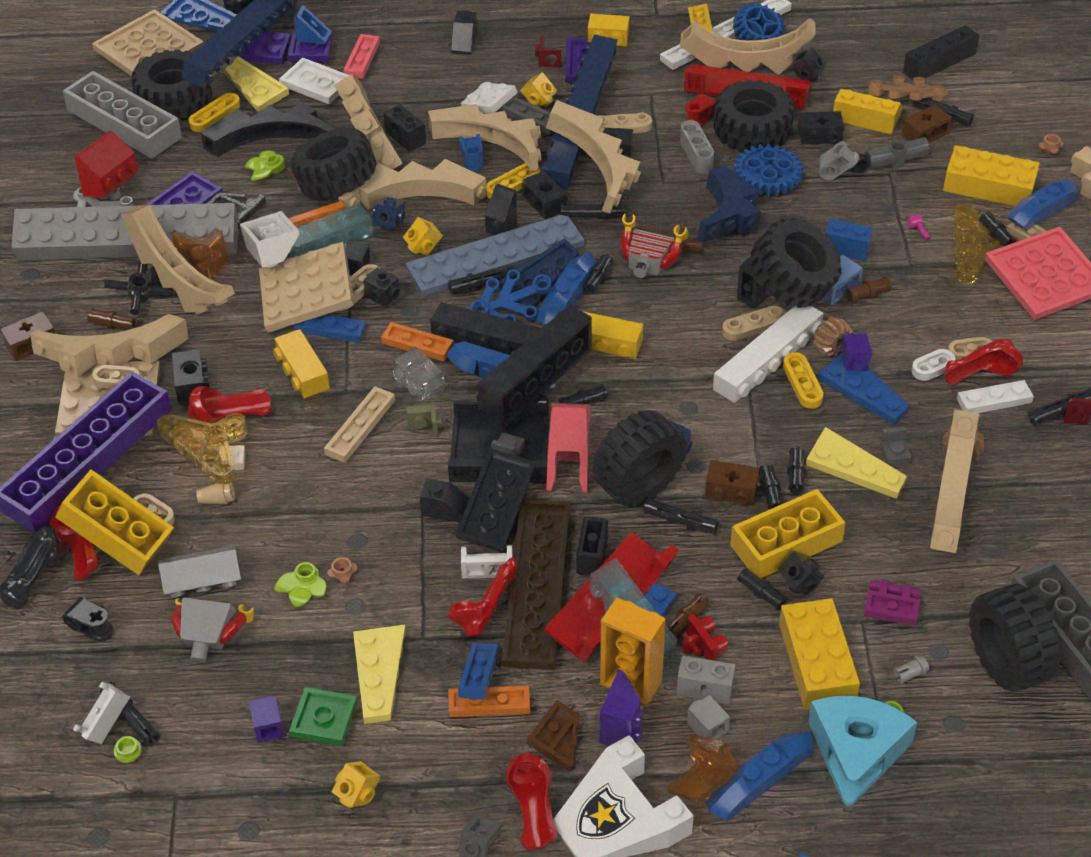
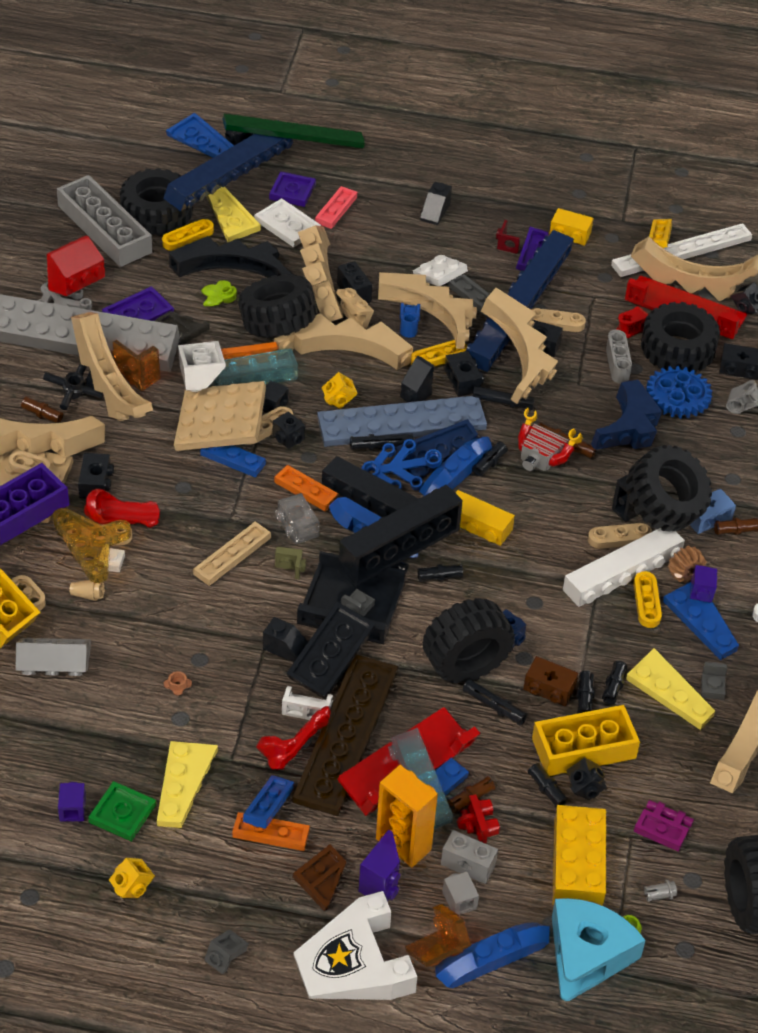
camera: 10 degrees right, 0 degrees up
(142, 38) = (145, 151): tan plate -> none
(207, 624) = (45, 706): light grey torso -> none
(268, 49) = (254, 184): dark purple plate -> none
(301, 364) = (196, 486): yellow brick -> none
(301, 586) = (136, 690): lime plate -> none
(310, 28) = (295, 172): blue slope -> none
(389, 213) = (315, 362): dark blue brick -> none
(412, 149) = (355, 307): none -> tan bracket
(530, 783) = (283, 913): red hair -> none
(539, 90) = (488, 273): yellow brick -> none
(569, 440) = (411, 608): coral piece -> none
(591, 545) = (404, 710): black brick -> none
(757, 23) = (712, 248): blue gear -> none
(850, 239) = (731, 475): blue brick -> none

